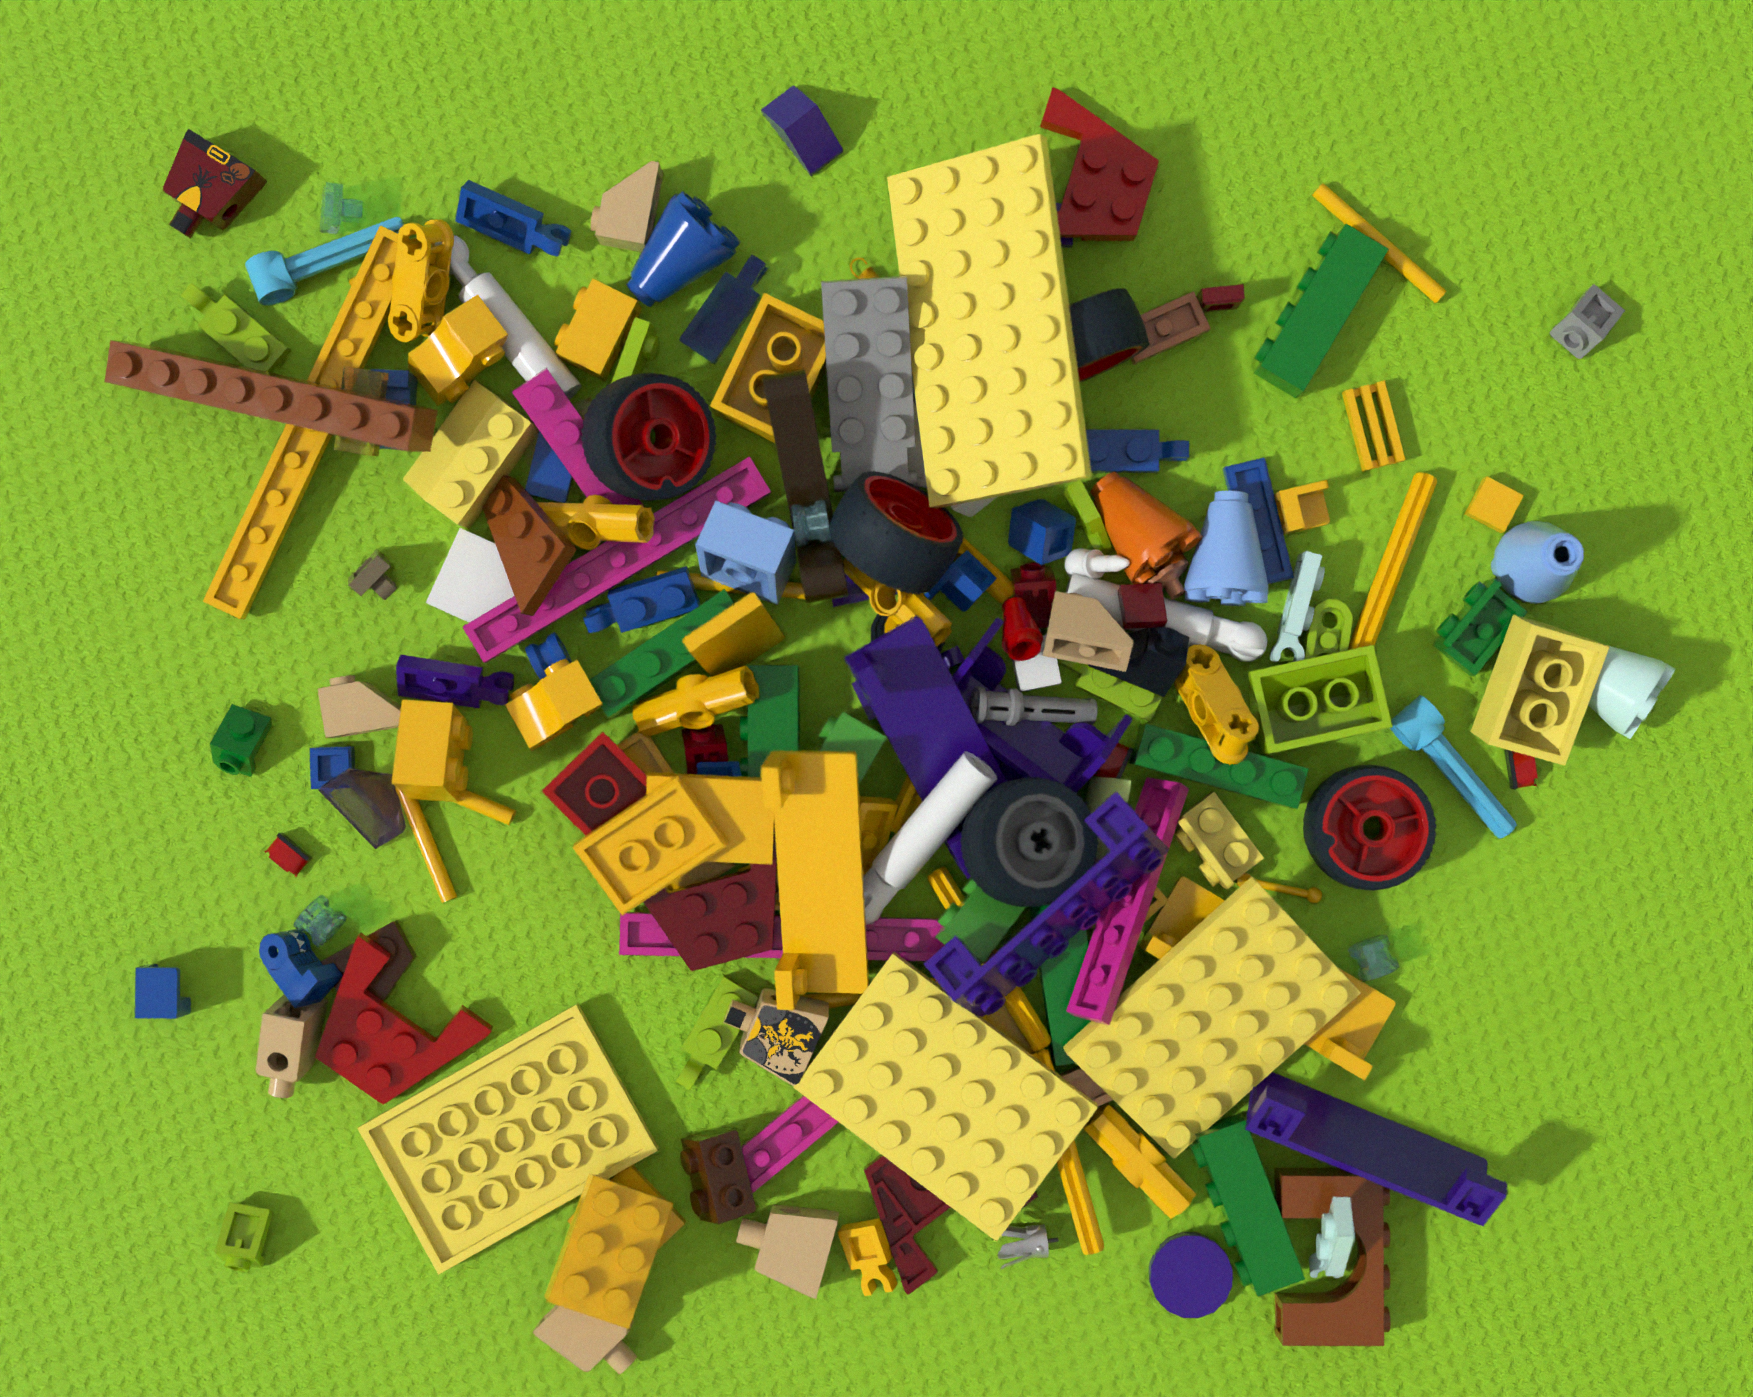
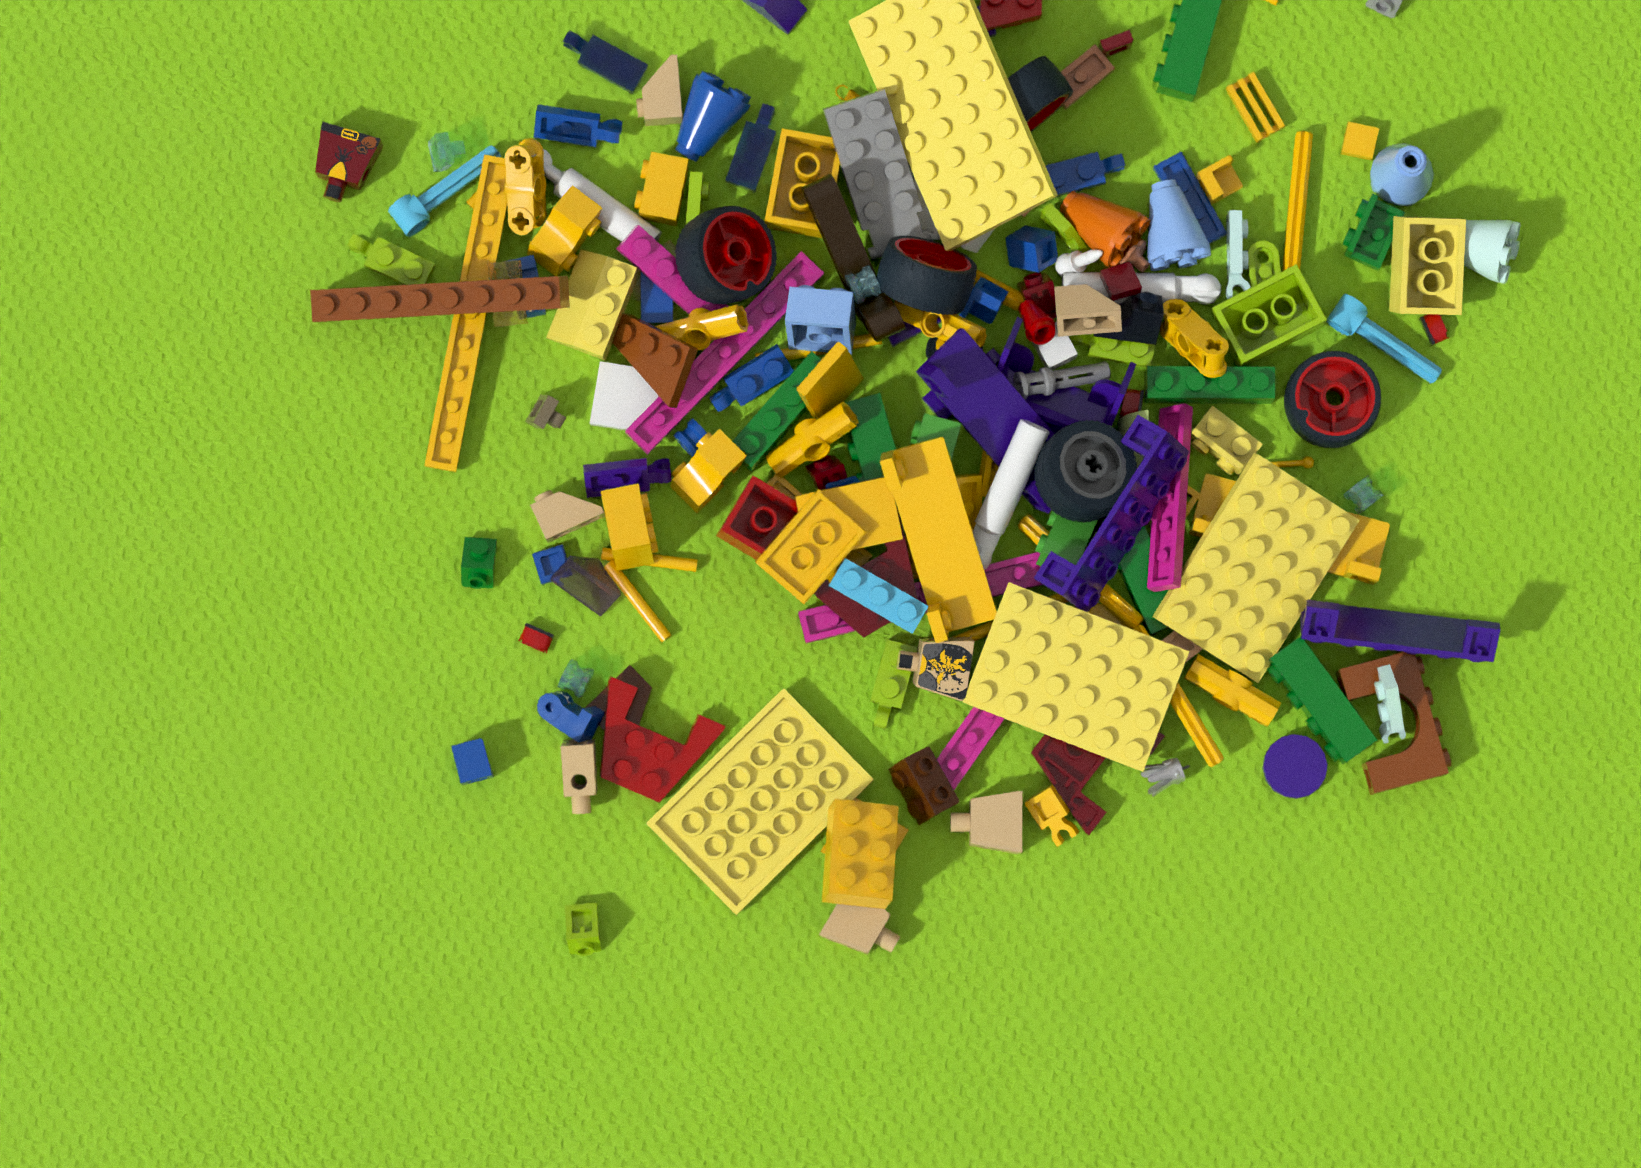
camera: 25 degrees left, 5 degrees down
(573, 149) = (607, 61): none -> clear blue plate
(721, 927) = (878, 595): none -> medium azure plate

